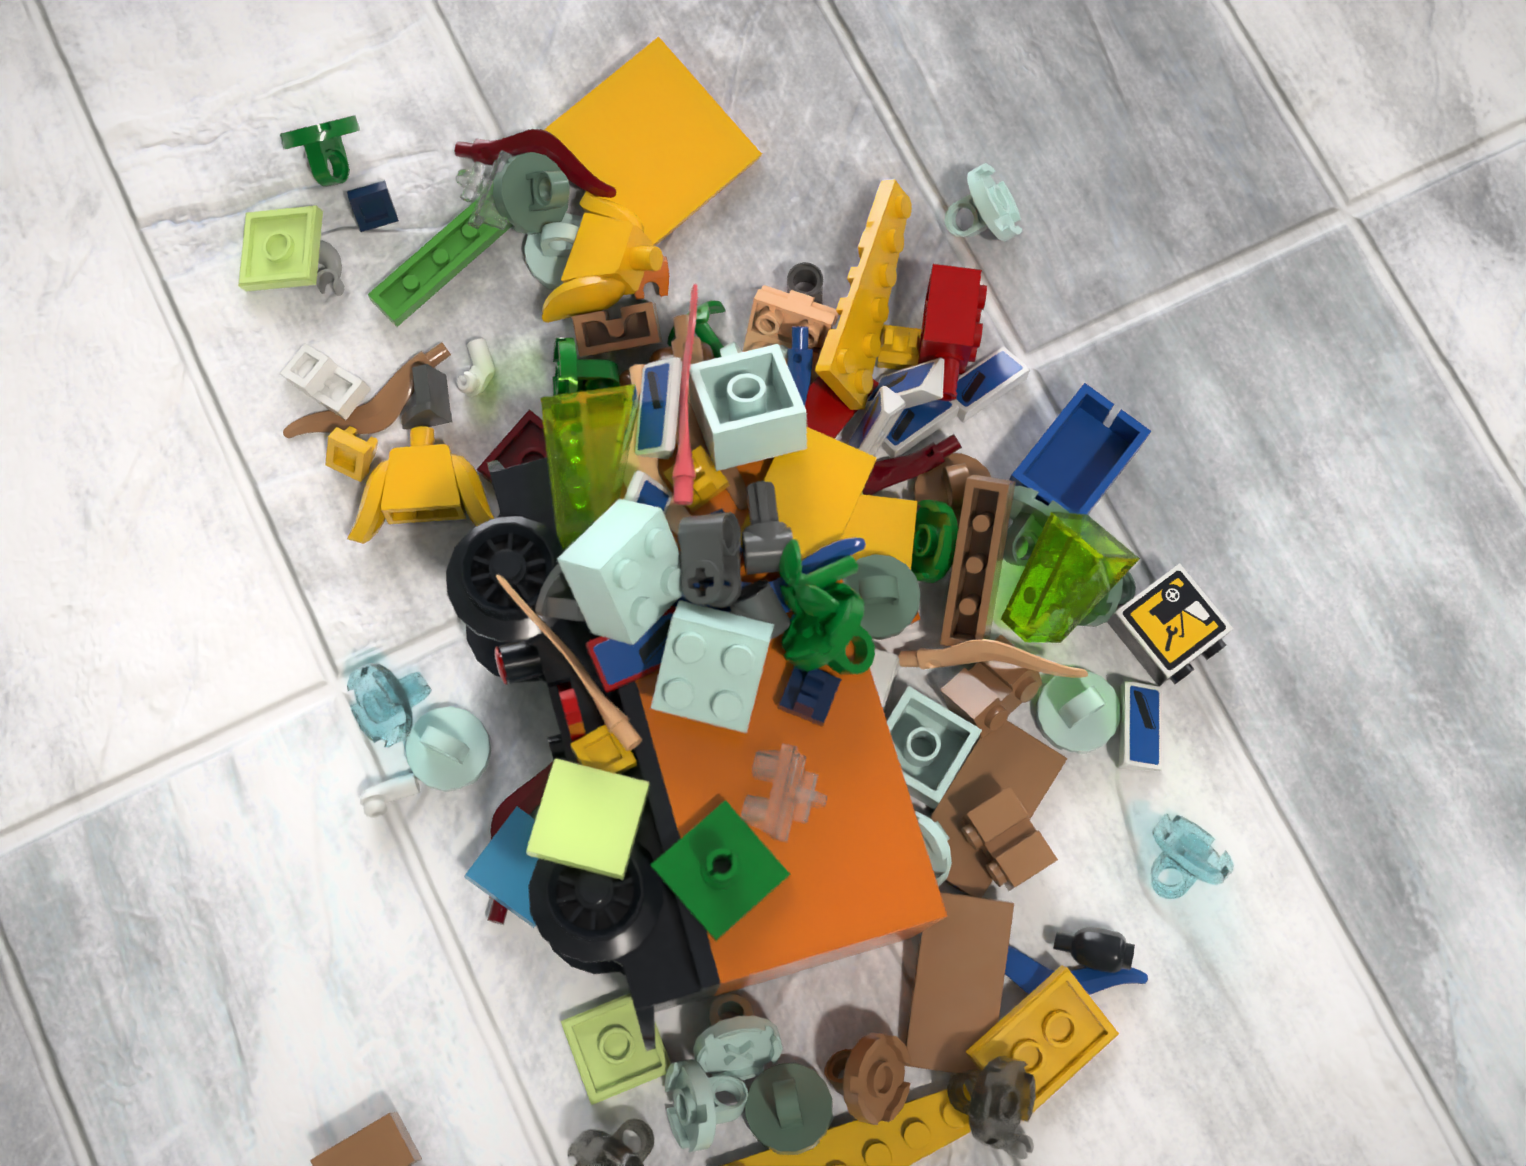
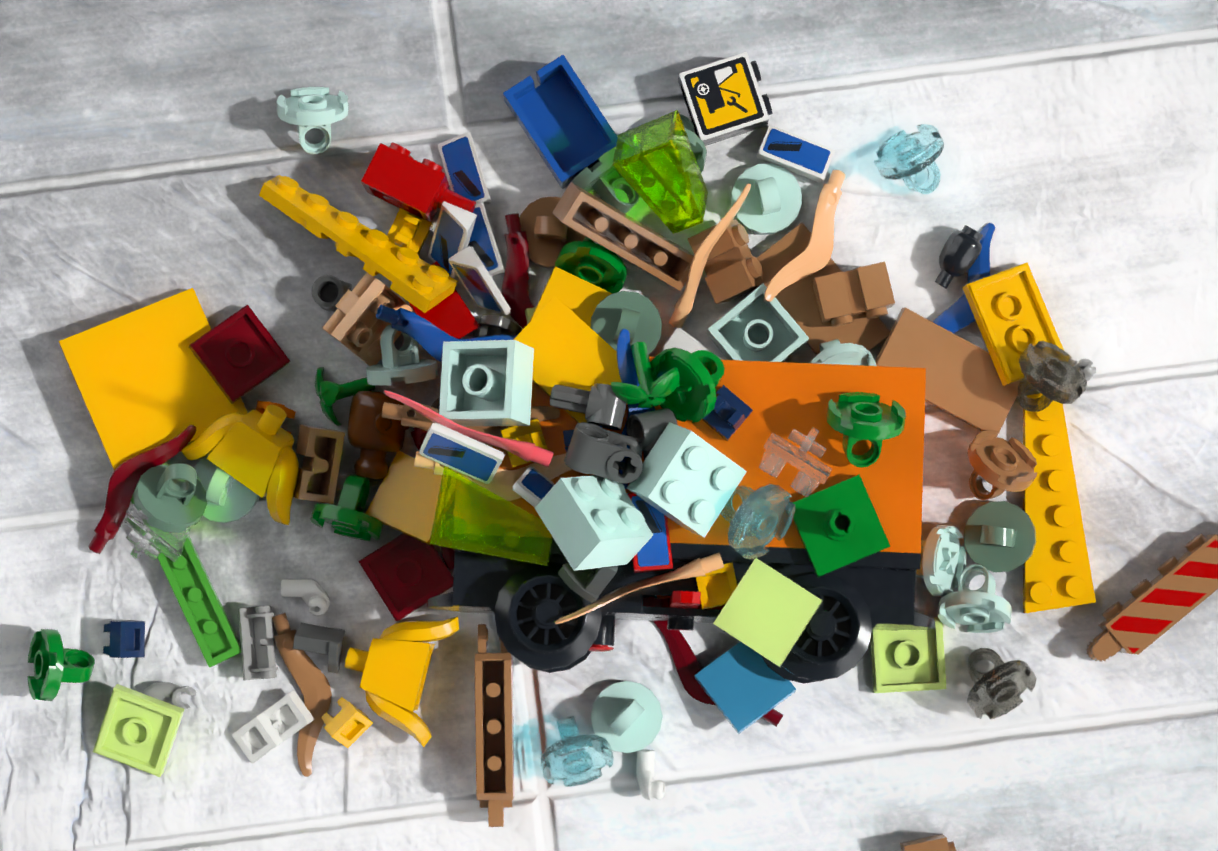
camera: 70 degrees left, 10 degrees up
(371, 611) = (494, 729): none -> medium nougat hinge
(409, 336) = (257, 642): none -> light grey hinge
(694, 766) = (758, 519): none -> clear light blue tile
(708, 219) = (239, 354): none -> dark red tile
(859, 857) = (865, 418): none -> green tile
(1050, 786) = (821, 241): none -> light nougat piece

